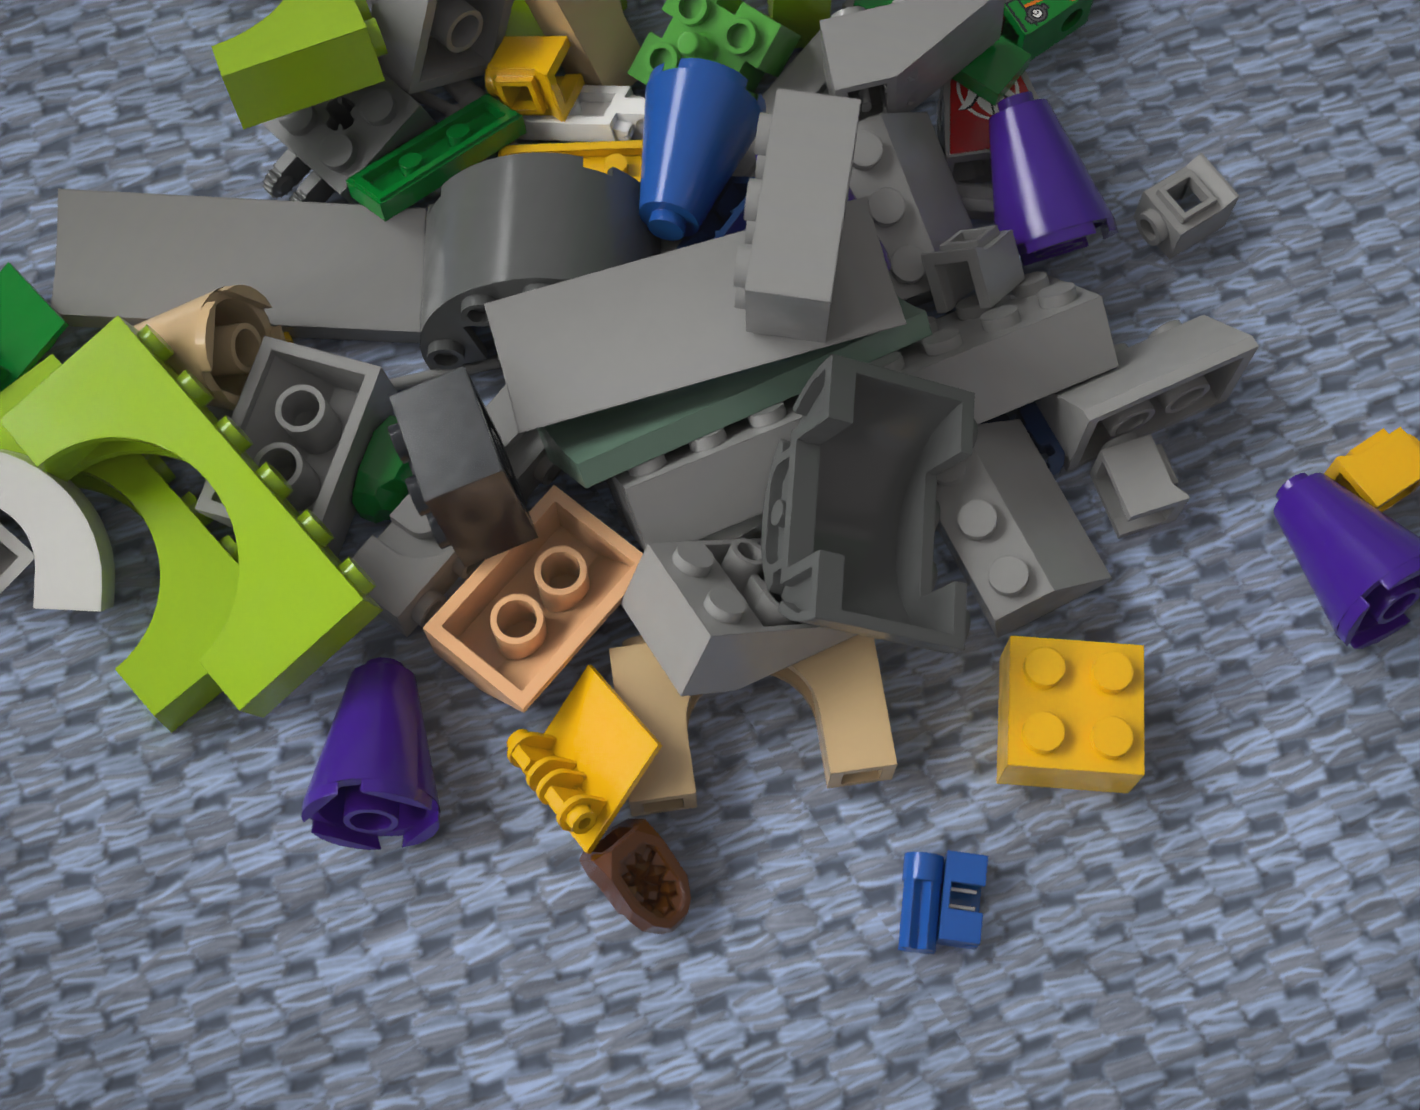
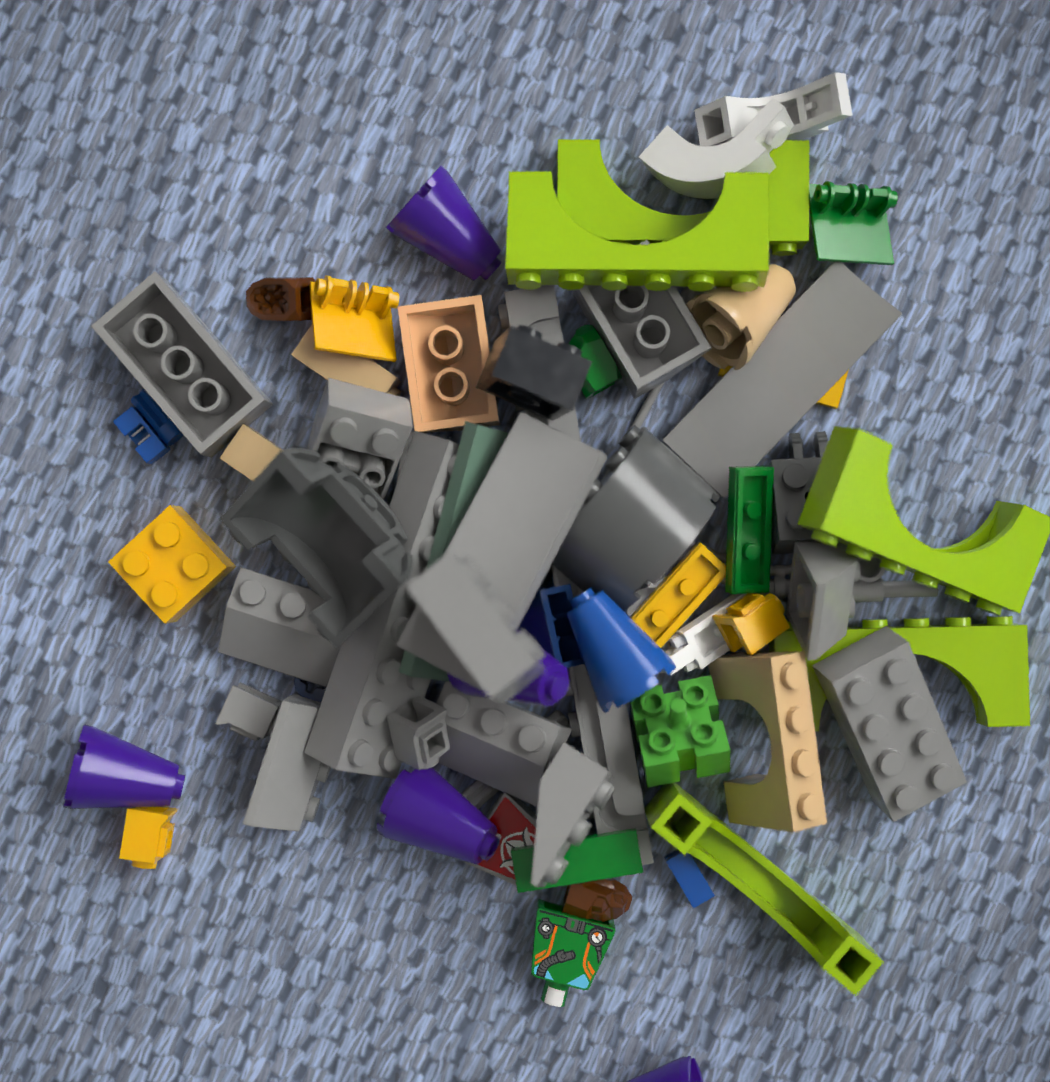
camera: 130 degrees right, 20 degrees up
(832, 916) = (181, 364): none -> light grey brick
(1165, 222) = (374, 872): light grey window -> none

